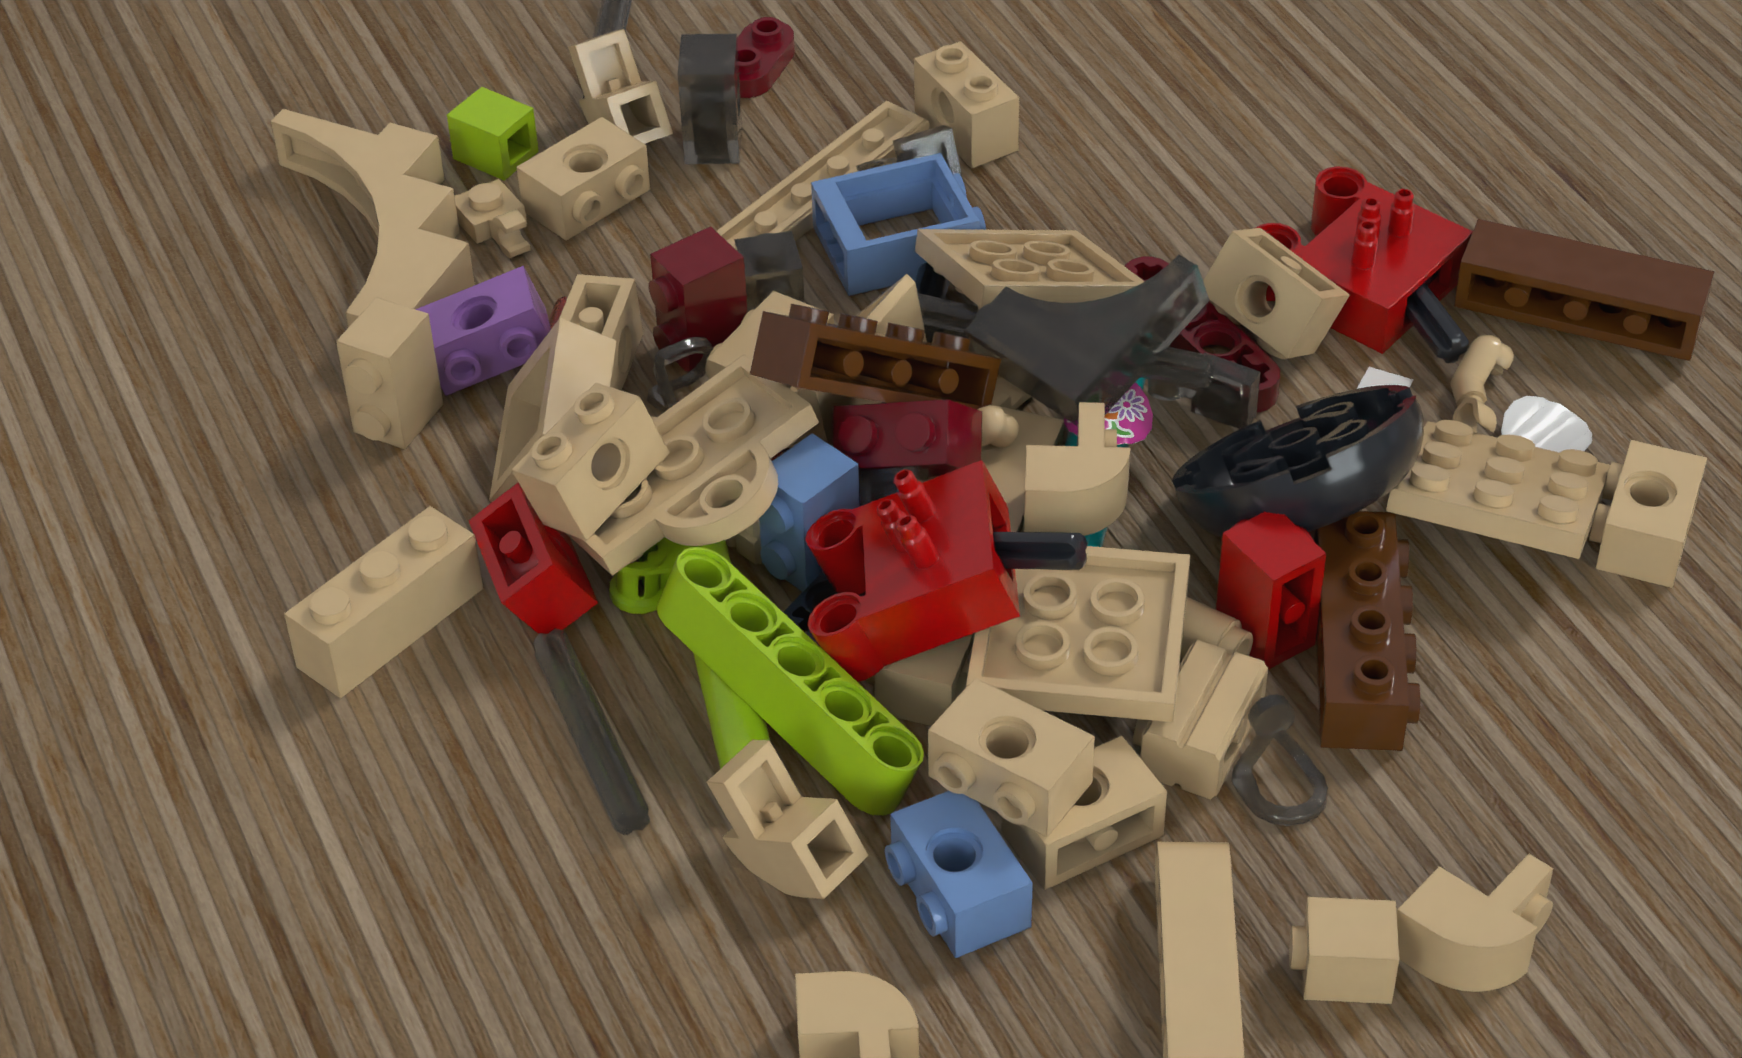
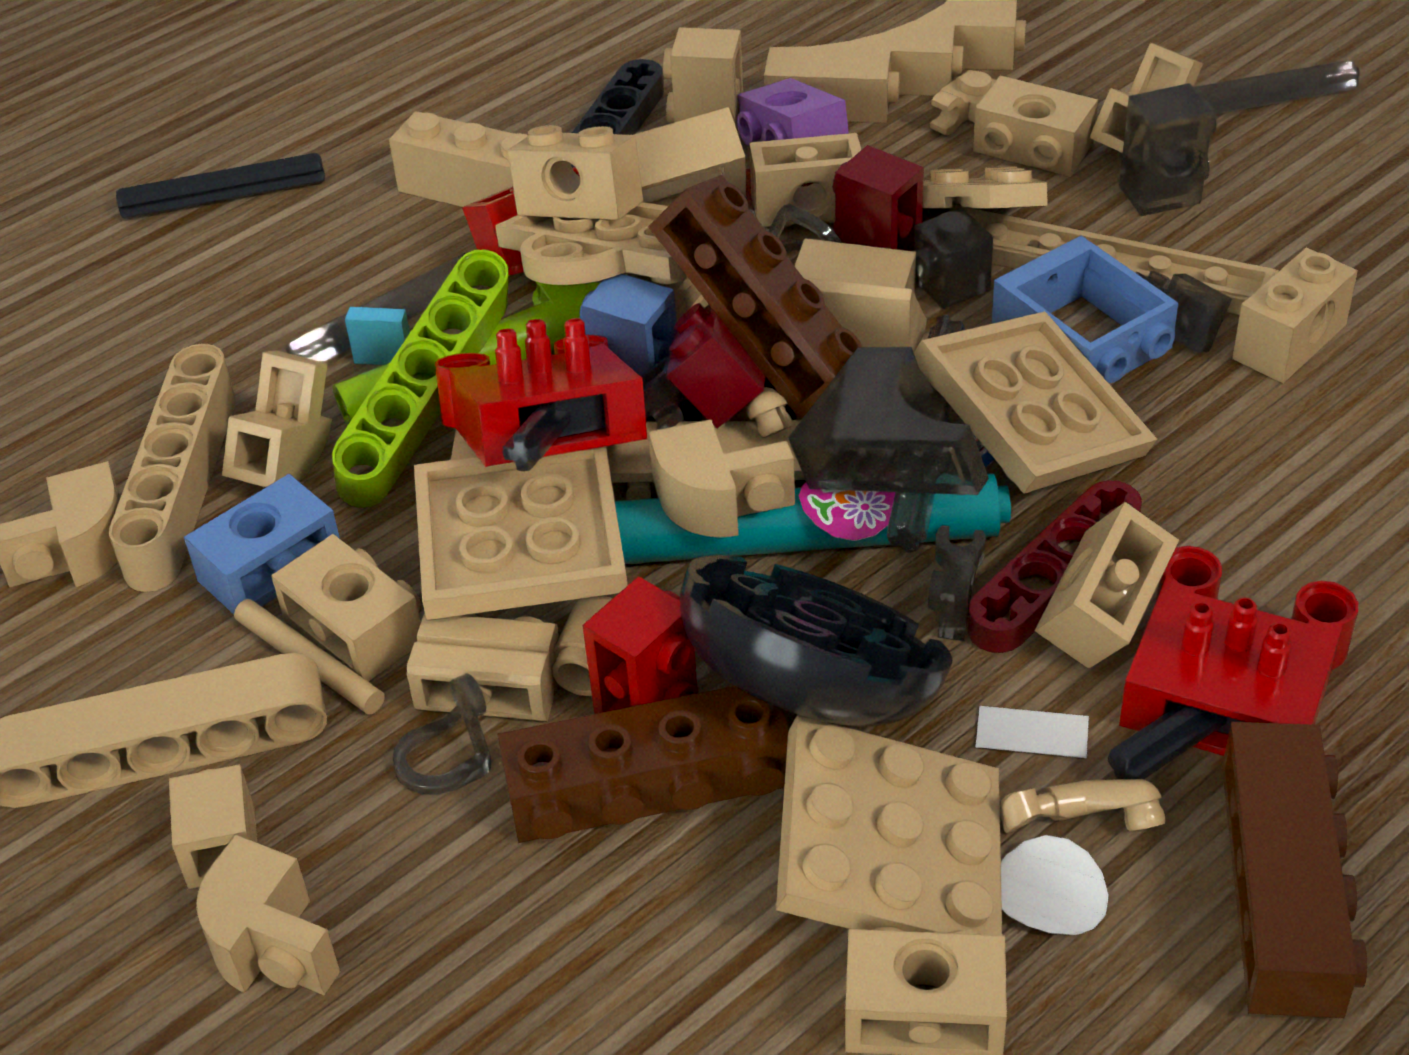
camera: 75 degrees right, 0 degrees up
(237, 860) = (220, 186): none -> black axle
(337, 492) = (634, 86): none -> black beam
(492, 133) = (1064, 58): lime brick -> none
(651, 730) = (376, 333): none -> medium azure tile
(724, 206) = (999, 189): none -> tan plate
(763, 54) = (1293, 181): dark red plate -> none
(781, 930) = (173, 468): none -> tan beam
(1010, 756) = (336, 513): tan brick -> none
(1115, 867) = (331, 671): none -> tan bar

